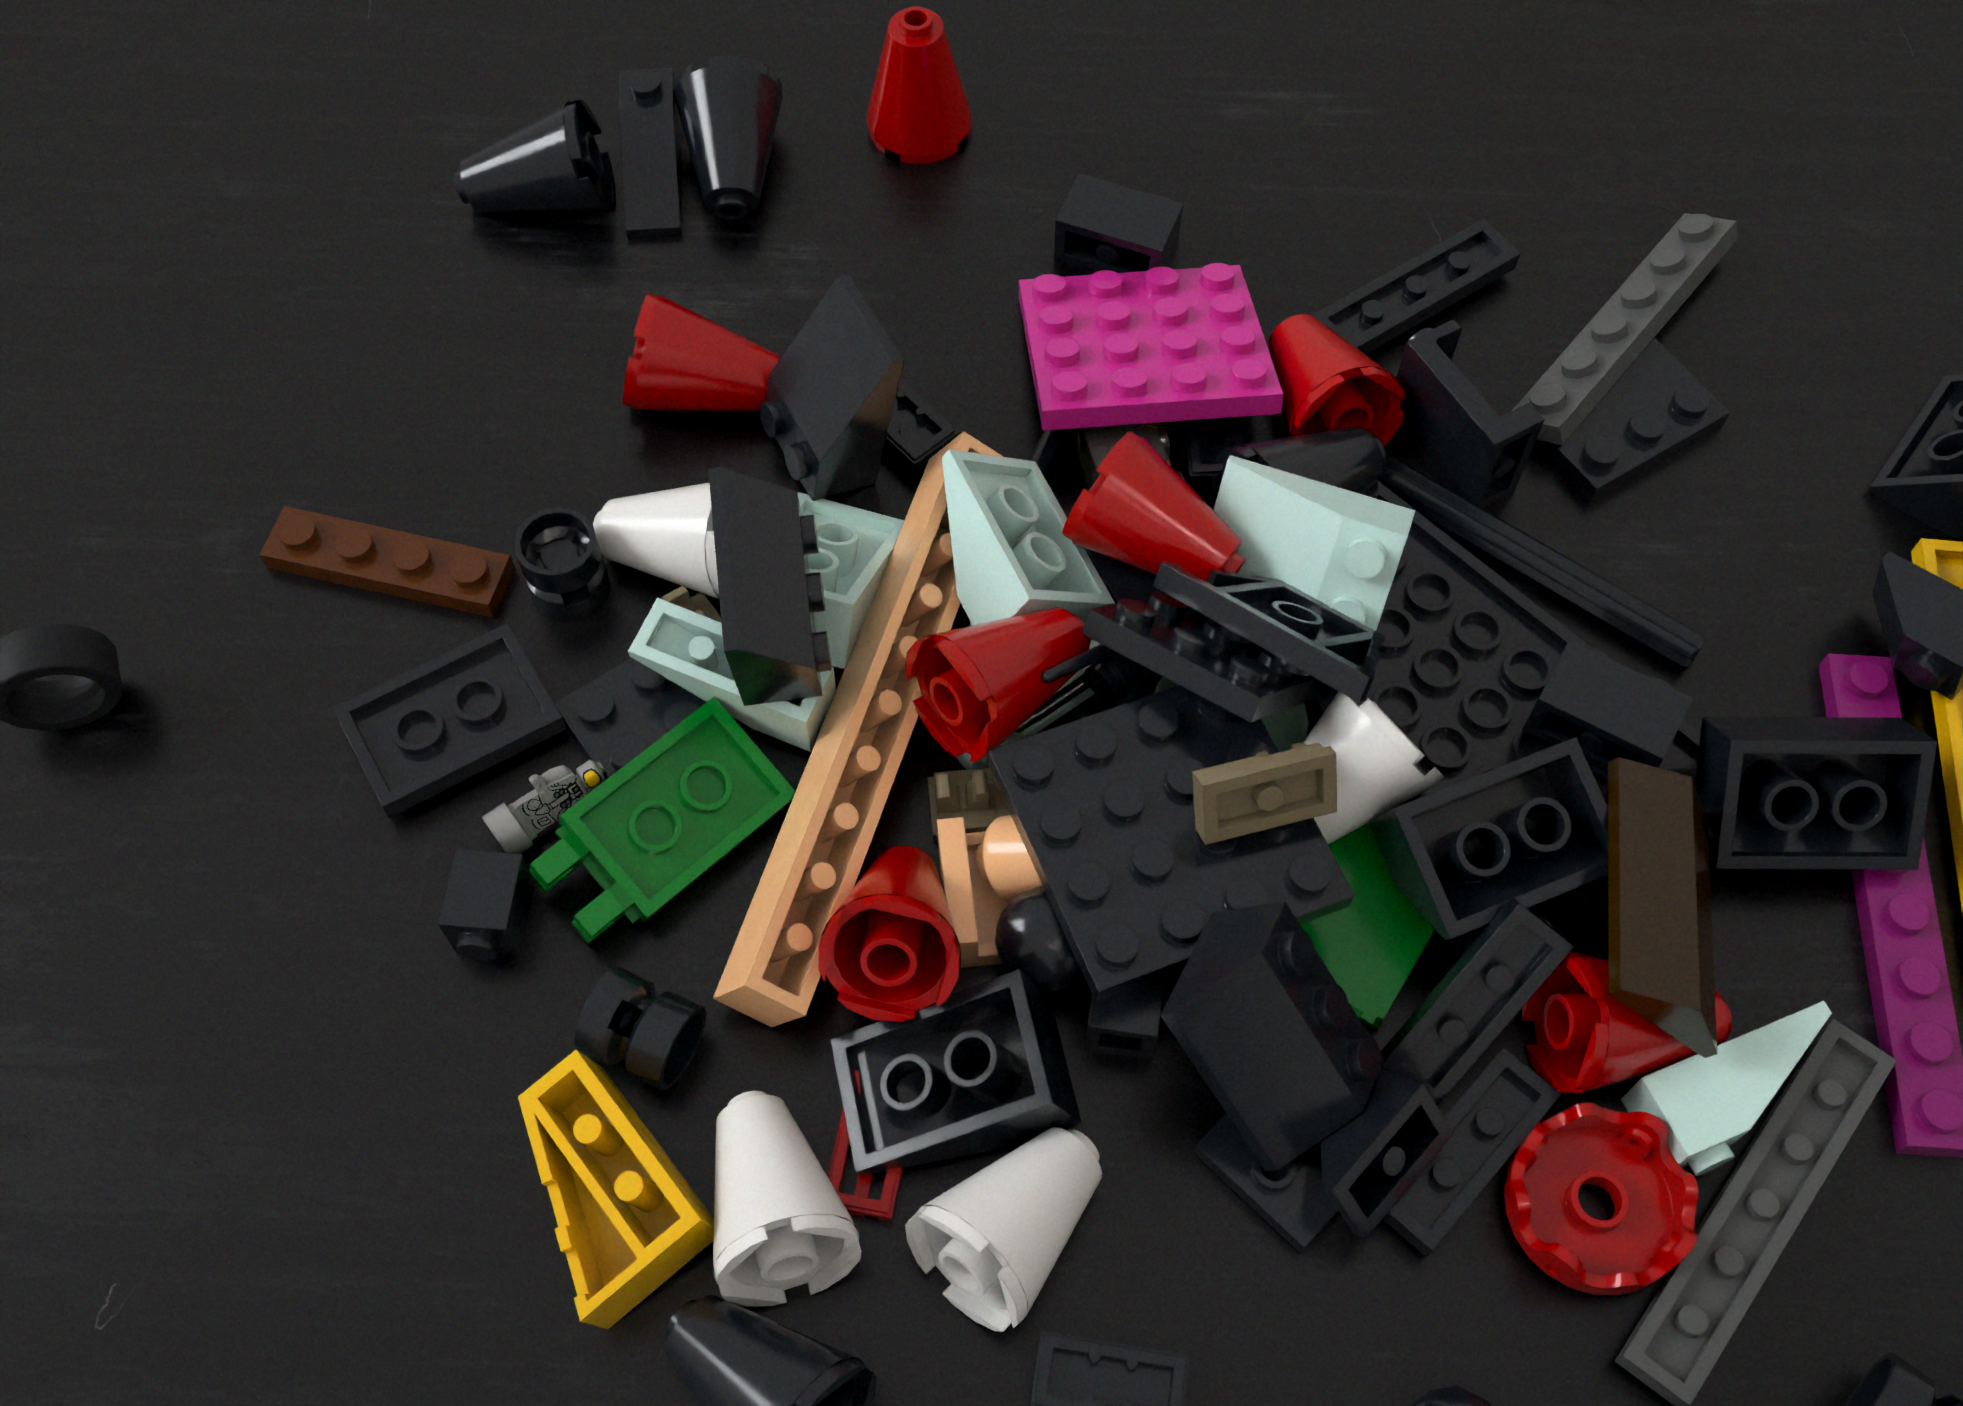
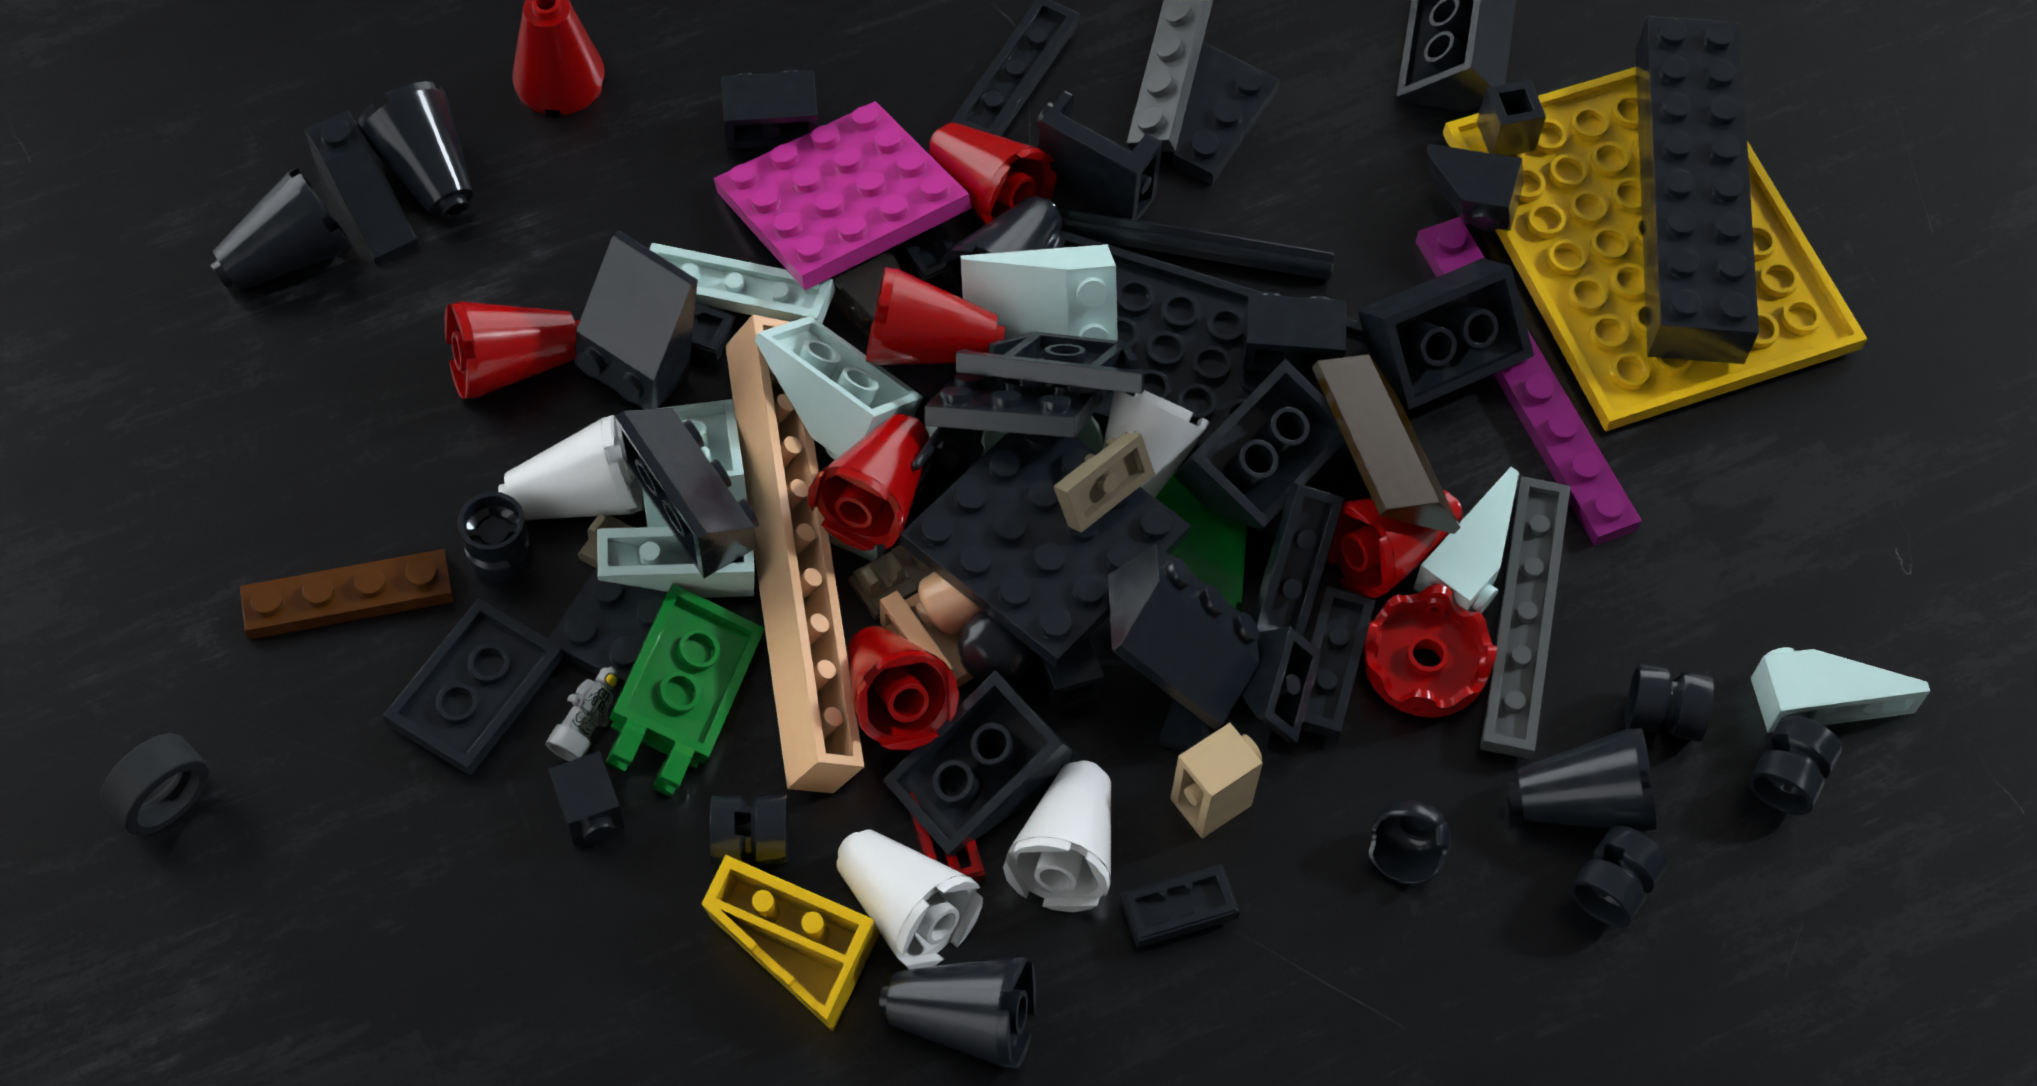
camera: 30 degrees left, 0 degrees up
(981, 401) = (749, 286): none -> light aqua plate
(1235, 1239) = (1216, 779): none -> tan brick

